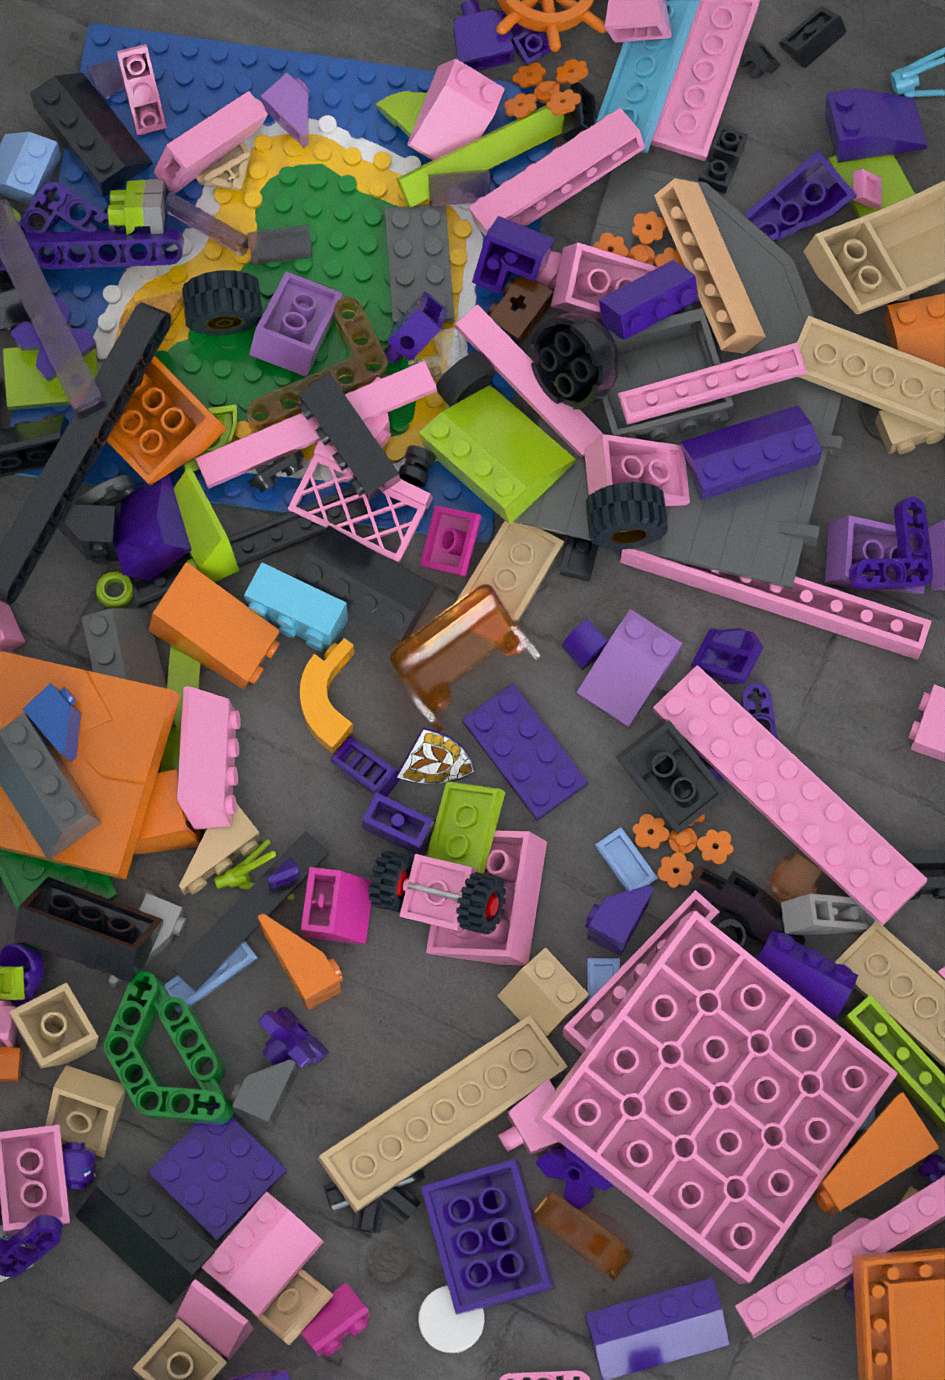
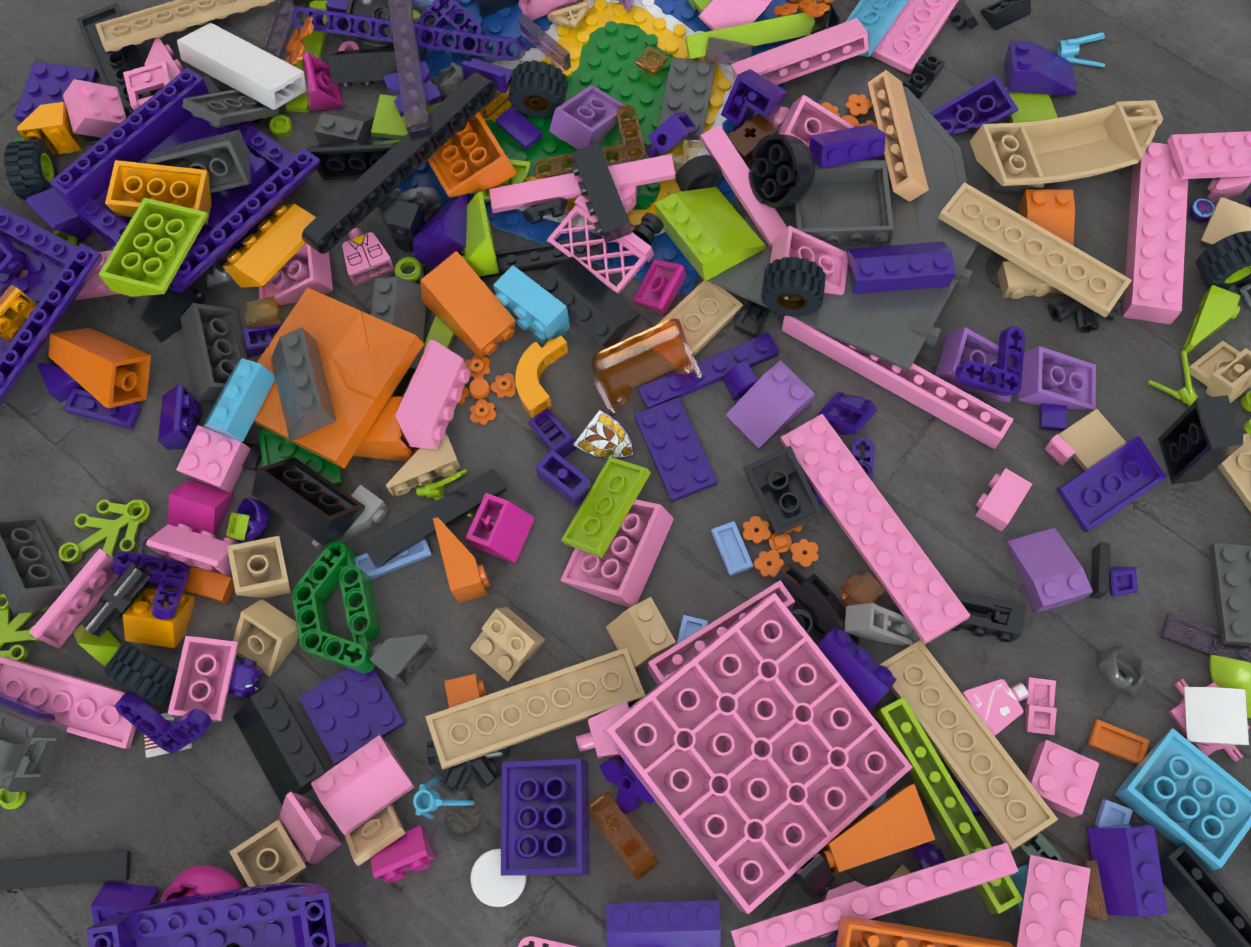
camera: 20 degrees right, 5 degrees down
(56, 587) = (365, 257): none -> bright pink torso
(56, 718) = (327, 339): blue slope -> none
(95, 311) = (448, 80): none -> dark grey hair
(139, 206) = (500, 18): hips -> none
(157, 293) = (498, 74): none -> dark purple panel
(205, 357) = (519, 128): none -> dark purple tile
(256, 729) = (480, 388): none -> orange plant
(280, 245) = (592, 68): tile -> none
(284, 874) = (465, 495): dark purple slope -> none
(290, 1039) = (435, 619): dark purple plant -> none
(349, 1115) = (464, 689): none -> orange slope
(350, 1250) = (429, 800): none -> medium azure plant
(358, 219) = (651, 60): none -> clear orange plate
(384, 1045) = (506, 643): none -> tan brick
(437, 892) = (577, 534): plate -> none
(546, 636) = (712, 368): none -> dark purple plate
(617, 918) = (714, 587): dark purple slope -> none
(712, 383) = (881, 210): bright pink tile -> none
(814, 1224) = (815, 876): none -> black slope
(867, 188) = (1027, 109): bright pink plate -> none

